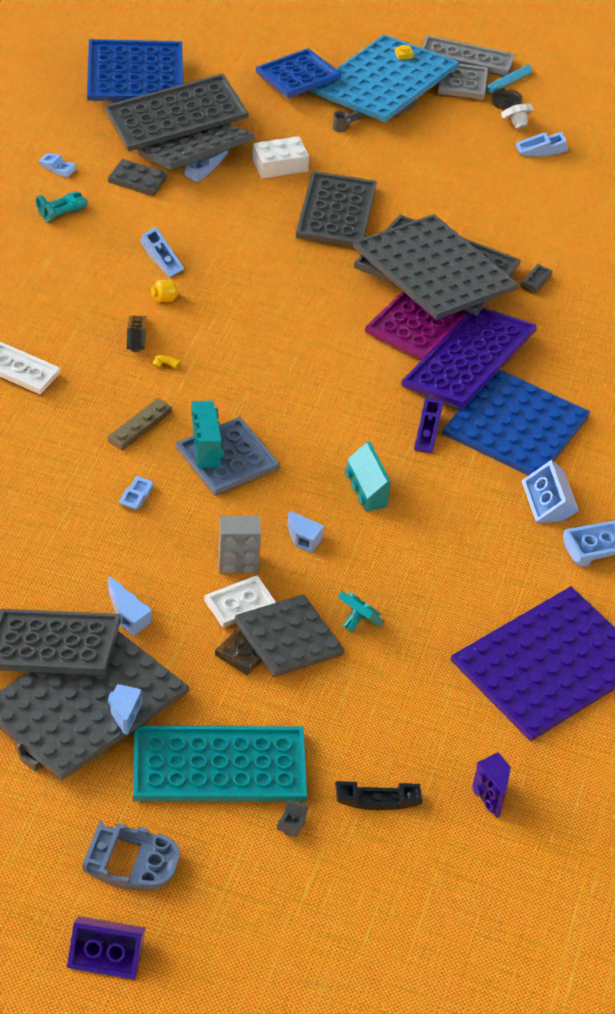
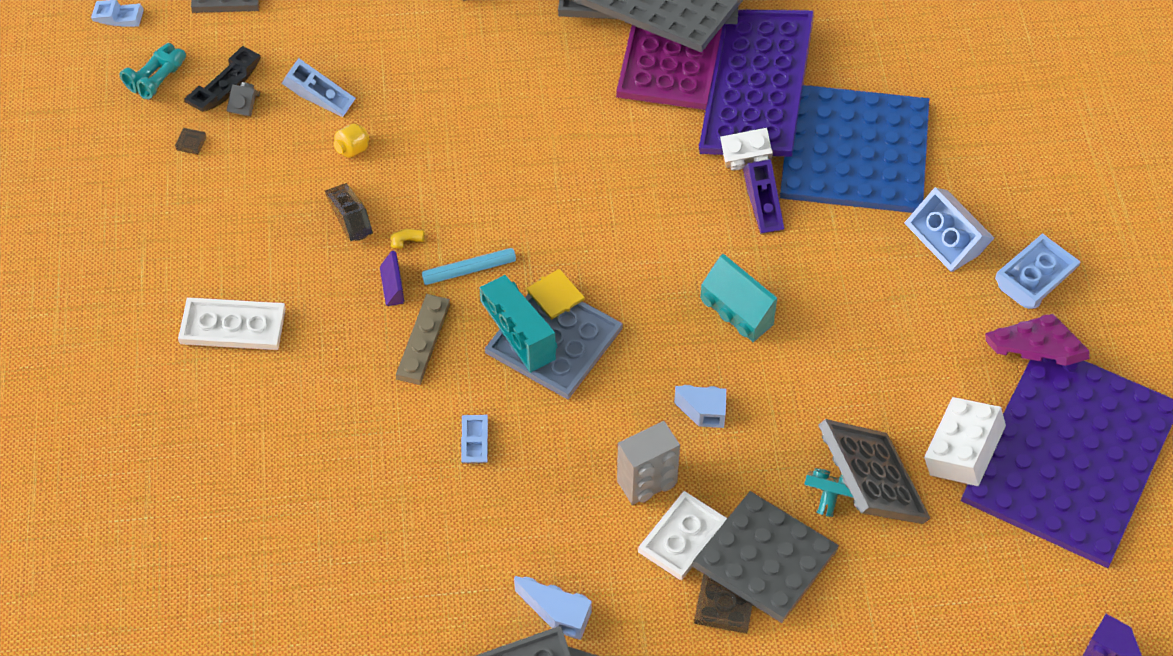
camera: 20 degrees left, 10 degrees up
(59, 255) = (190, 141): none -> clear smoke tile
(107, 242) = (242, 99): none -> dark grey bracket
(118, 224) = (218, 90): none -> black slope
(141, 382) = (391, 280): none -> dark purple slope
(197, 393) = (468, 266): none -> medium azure axle
(244, 428) = (555, 294): none -> yellow piece
(392, 610) = (873, 472): none -> dark grey plate
(432, 388) = (746, 148): none -> white bracket
(473, 621) = (965, 441): none -> white brick
(577, 585) = (1038, 340): none -> magenta plate

